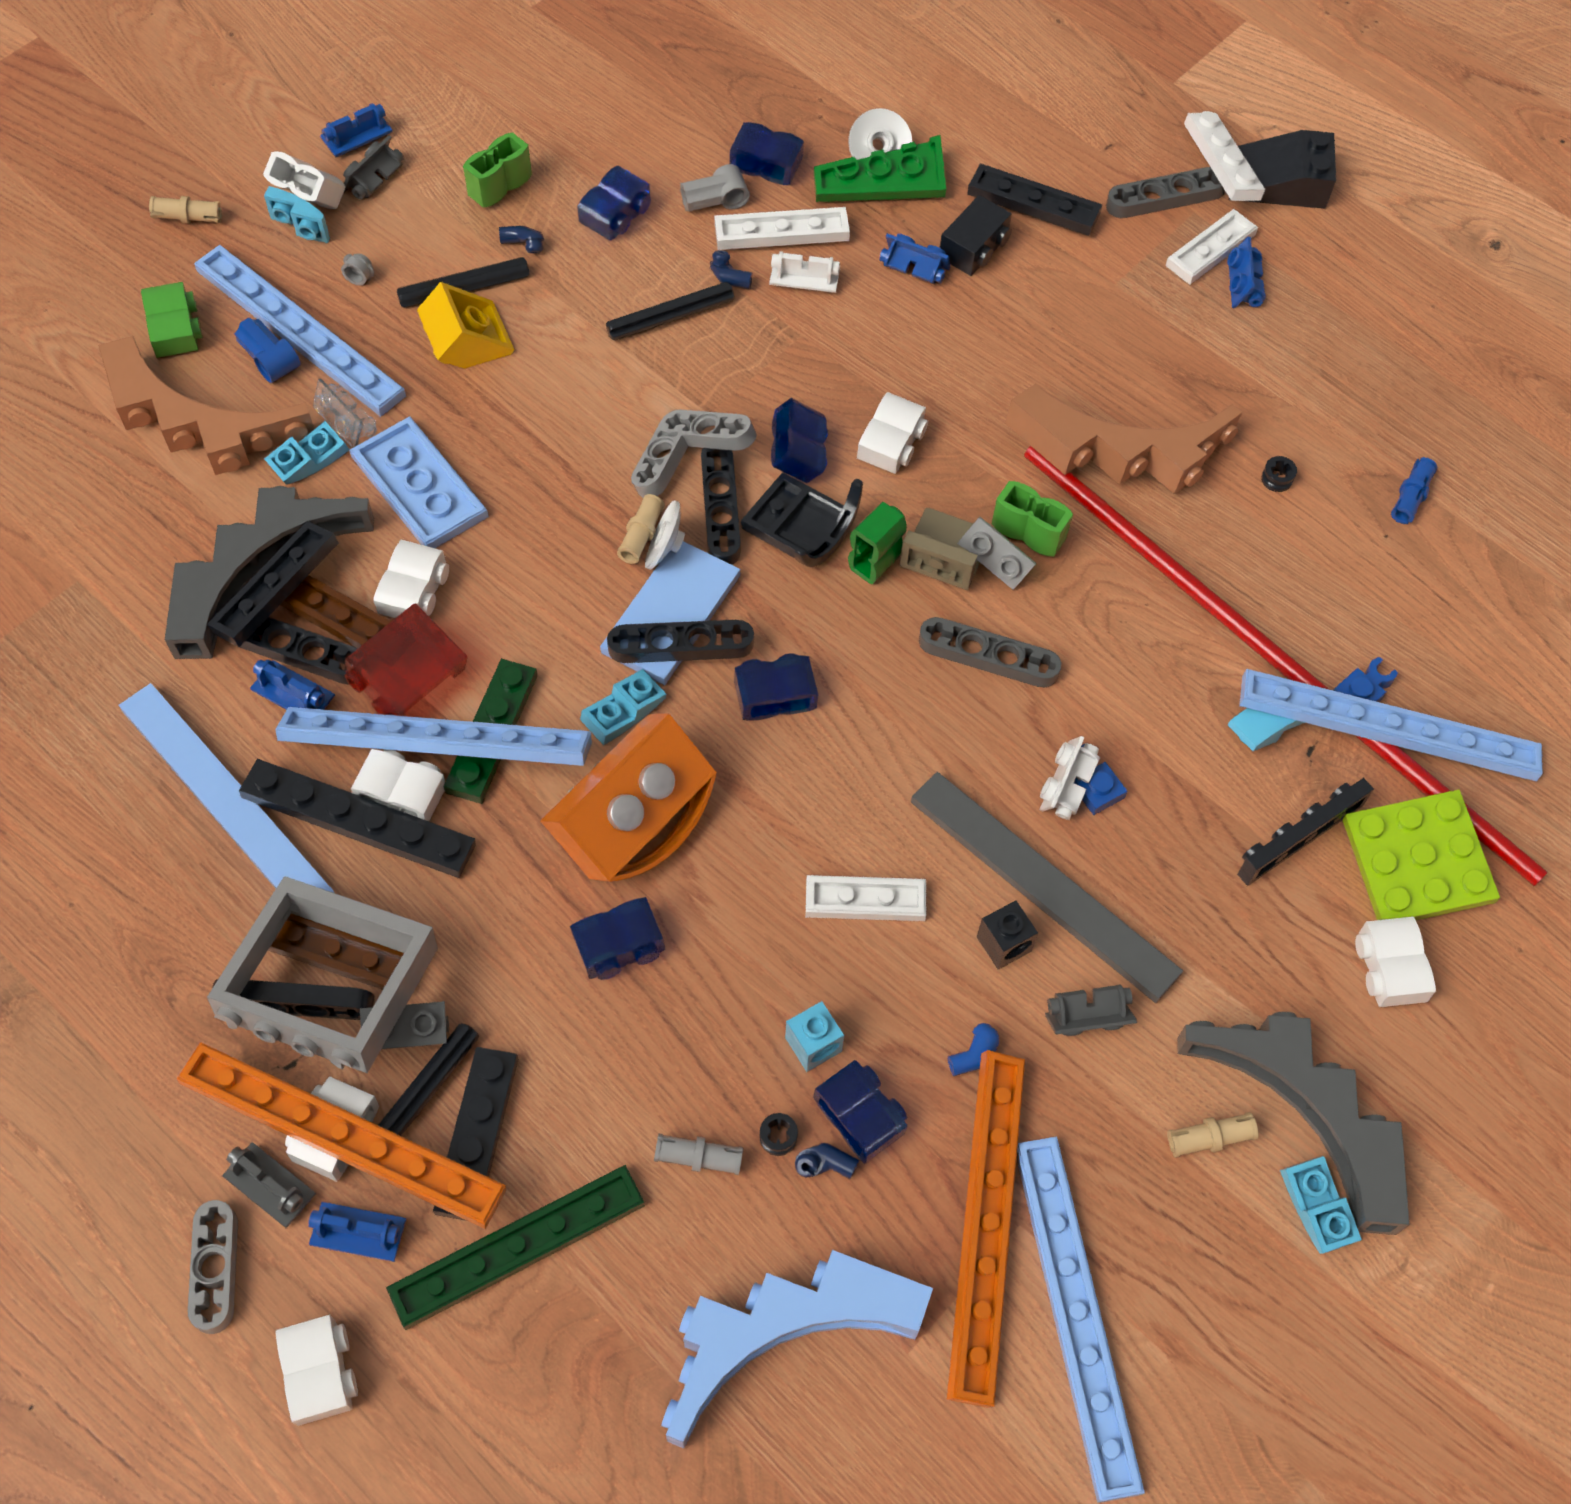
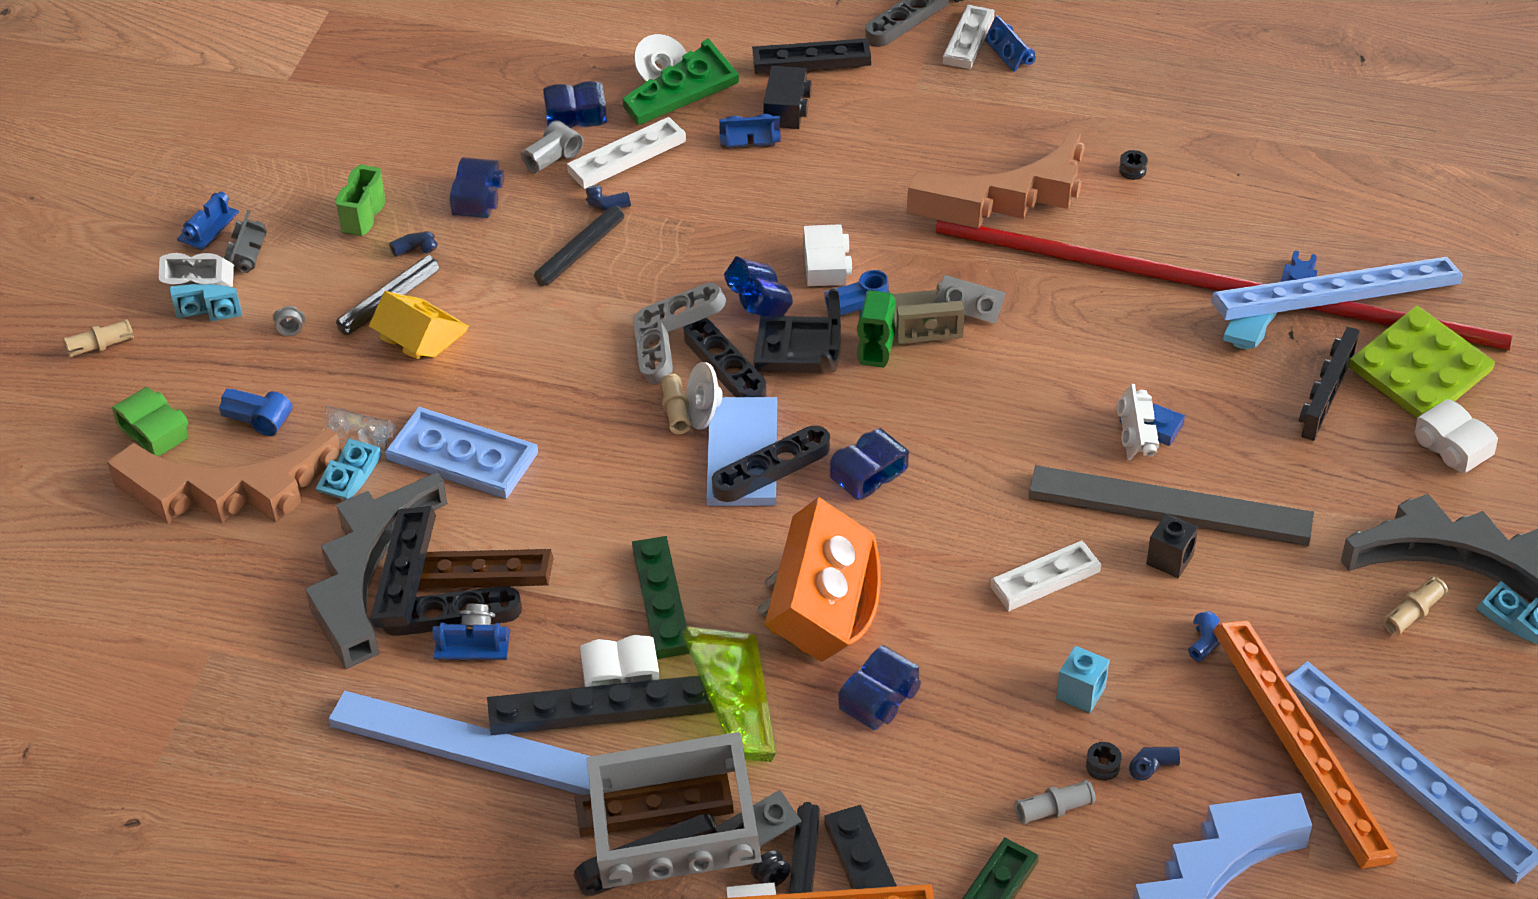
camera: 25 degrees left, 15 degrees down
(300, 330) = (300, 389): light blue tile -> none
(305, 668) = (476, 615): none -> light grey plate
(388, 1077) = (771, 868): none -> black bush
(404, 662) = (559, 576): clear red panel -> none
(411, 578) = (515, 519): white brick -> none
(434, 736) = (623, 613): light blue tile -> none
(486, 861) = (735, 685): none -> clear neon green wing
(626, 706) = (756, 533): medium azure slope -> none
(815, 274) = (658, 178): white hinge -> none
(861, 1111) = (1154, 712): clear blue brick -> none
(906, 494) = (852, 295): none -> blue piece
(991, 646) = (1012, 375): dark grey beam -> none
(1031, 518) = (981, 263): bright green brick -> none
(1072, 1015) = (1259, 574): dark grey hinge -> none
(1414, 490) = (1237, 135): blue pin -> none

